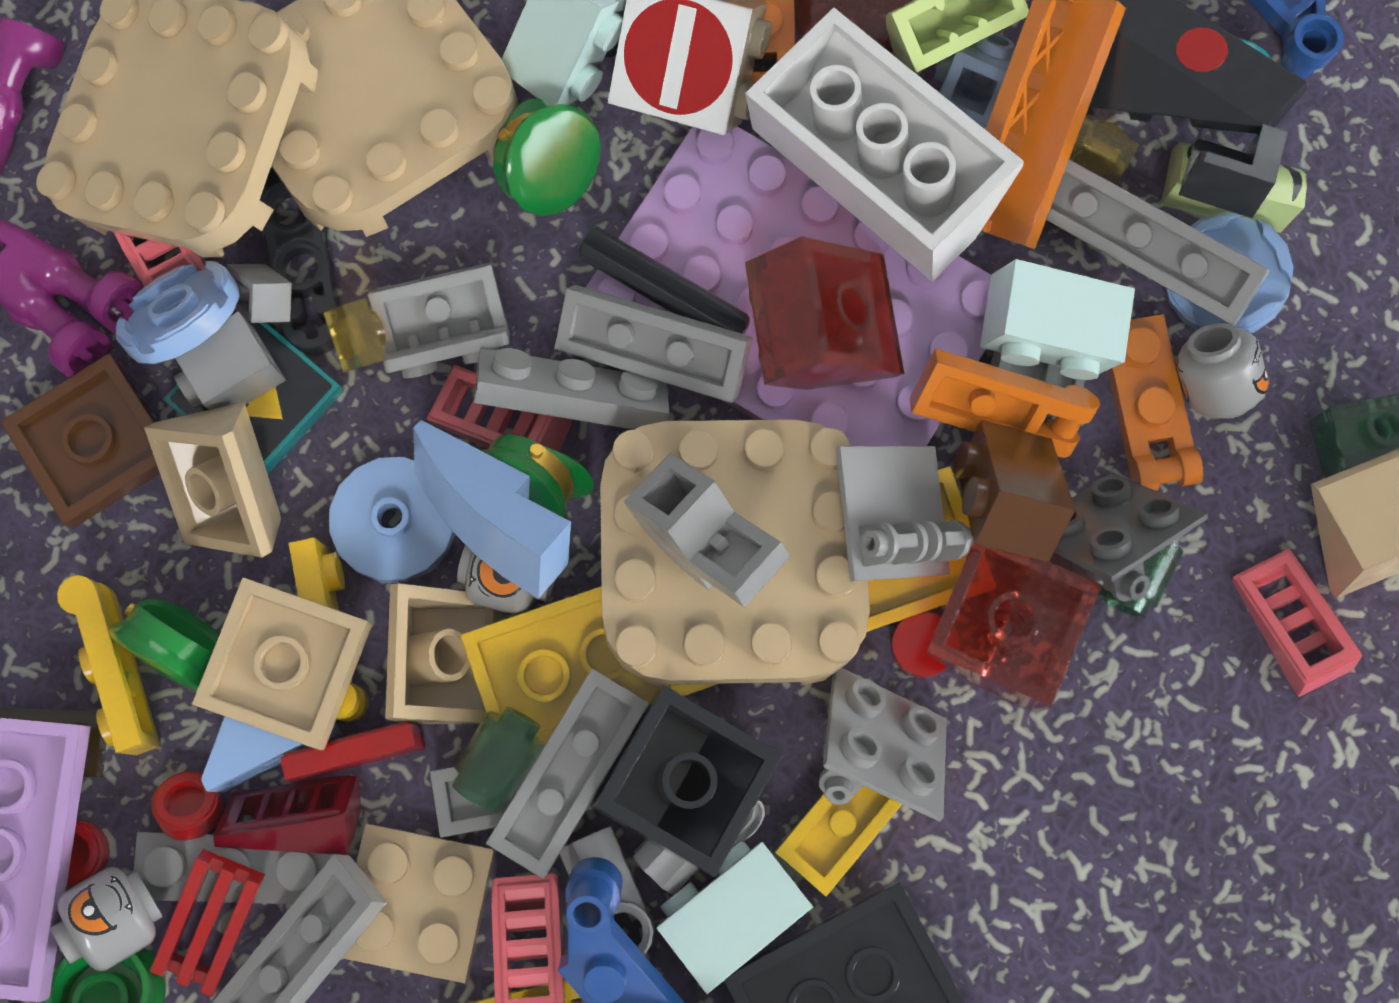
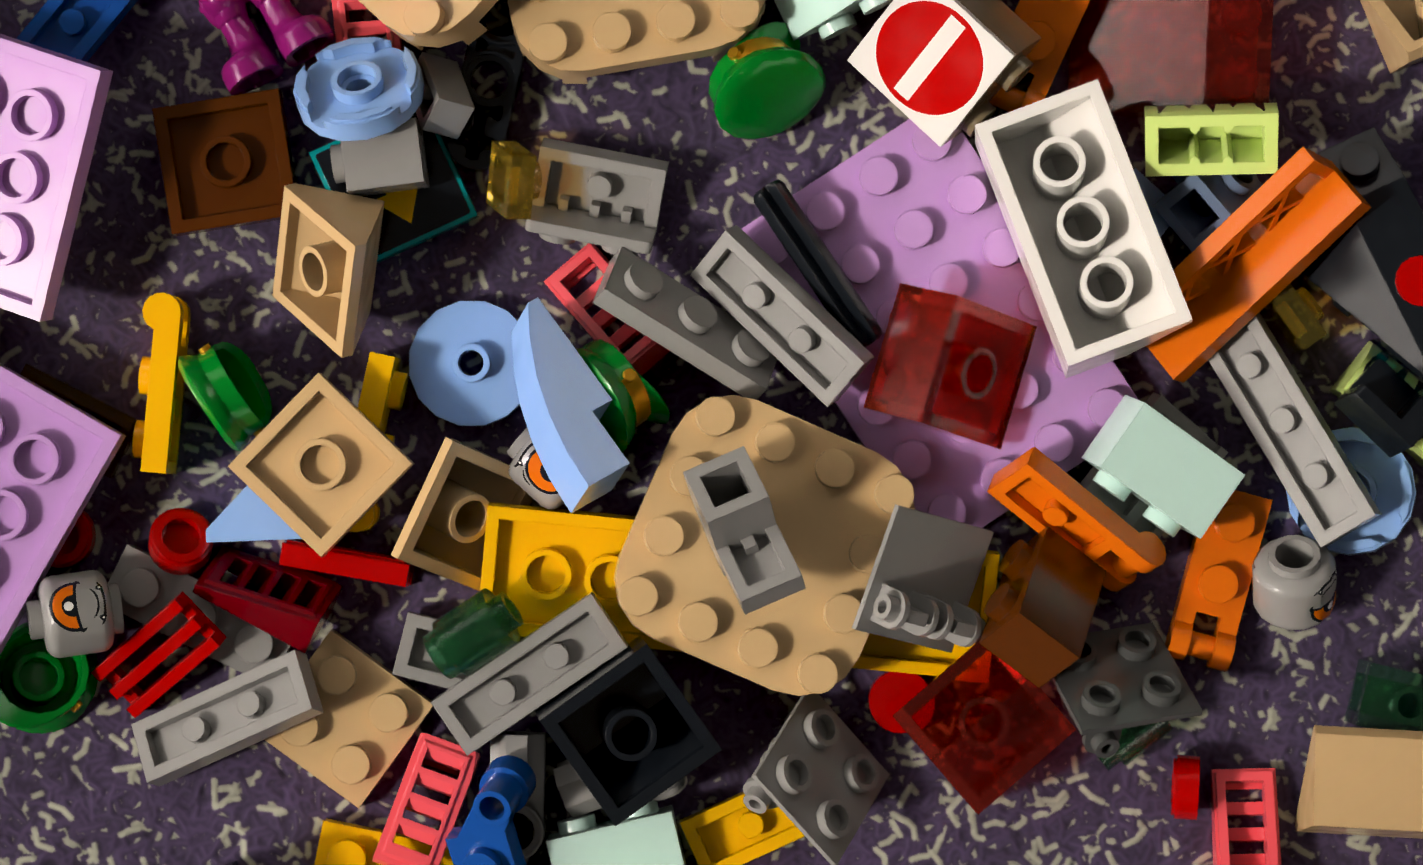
camera: 25 degrees right, 10 degrees up
(1221, 601) = (1185, 787): none -> red tile

